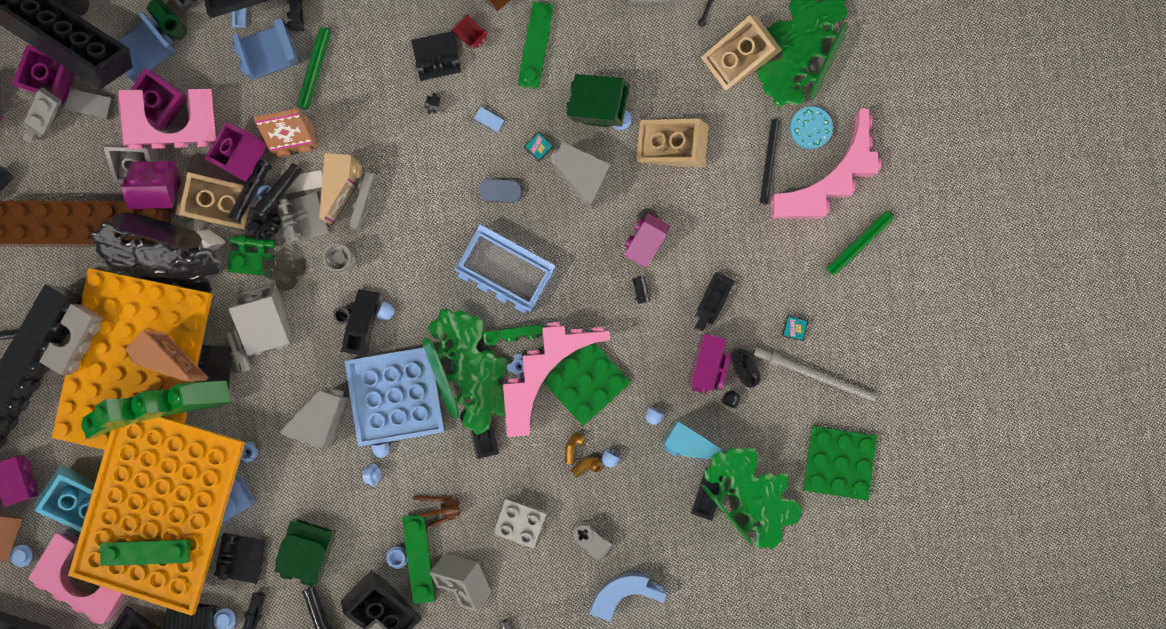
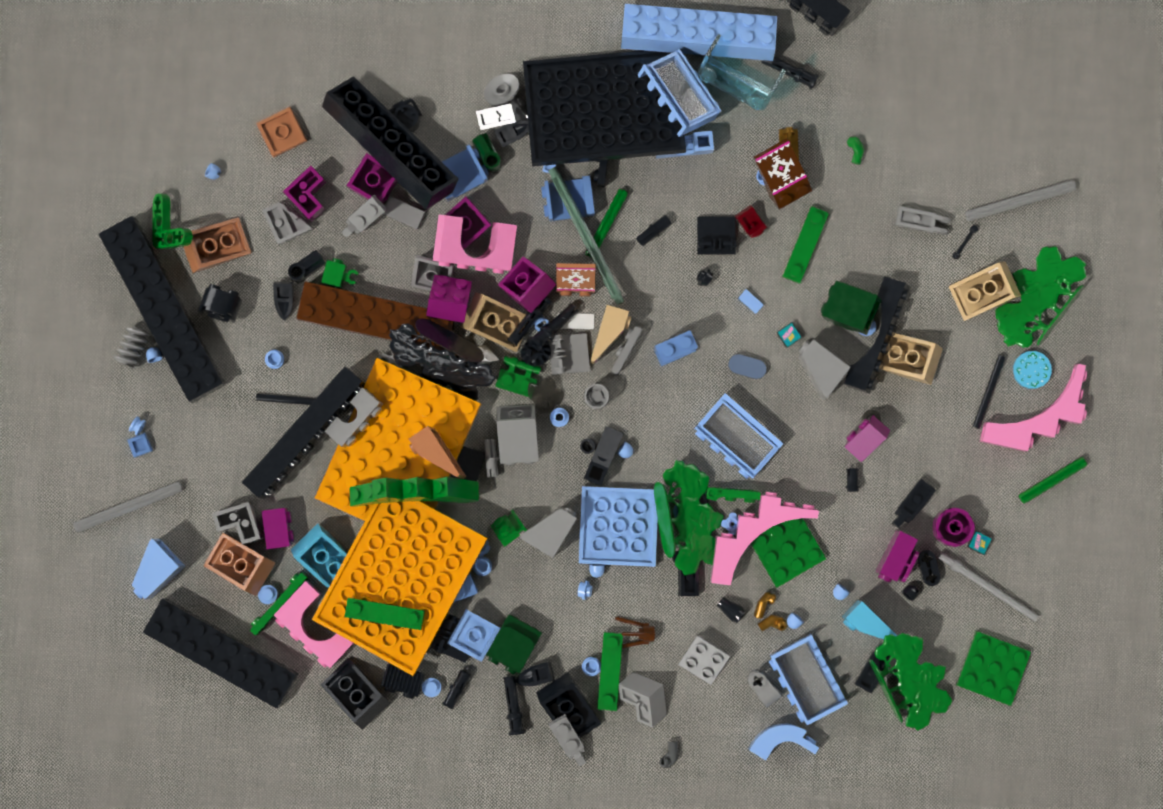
camera: 15 degrees right, 0 degrees up
(19, 589) = (260, 623): none -> green plate
(27, 186) = (336, 274): none -> green brick
(254, 472) = (482, 566): none -> light blue plate
(256, 552) = (473, 635): none -> light blue plate
(269, 425) = (508, 528): none -> green plate
(292, 86) = (586, 236): none -> sand green piece
(311, 290) = (564, 421): none -> light blue plate
(338, 580) = (536, 675): none -> black plate
(366, 64) = (653, 230): none -> black axle
(413, 186) = (675, 348): none -> medium blue panel
(538, 461) = (731, 610): none -> black cone
(628, 168) = (863, 372): none -> black arch
(638, 521) = (807, 680): none -> clear window
(771, 309) = (963, 522): none -> magenta brick

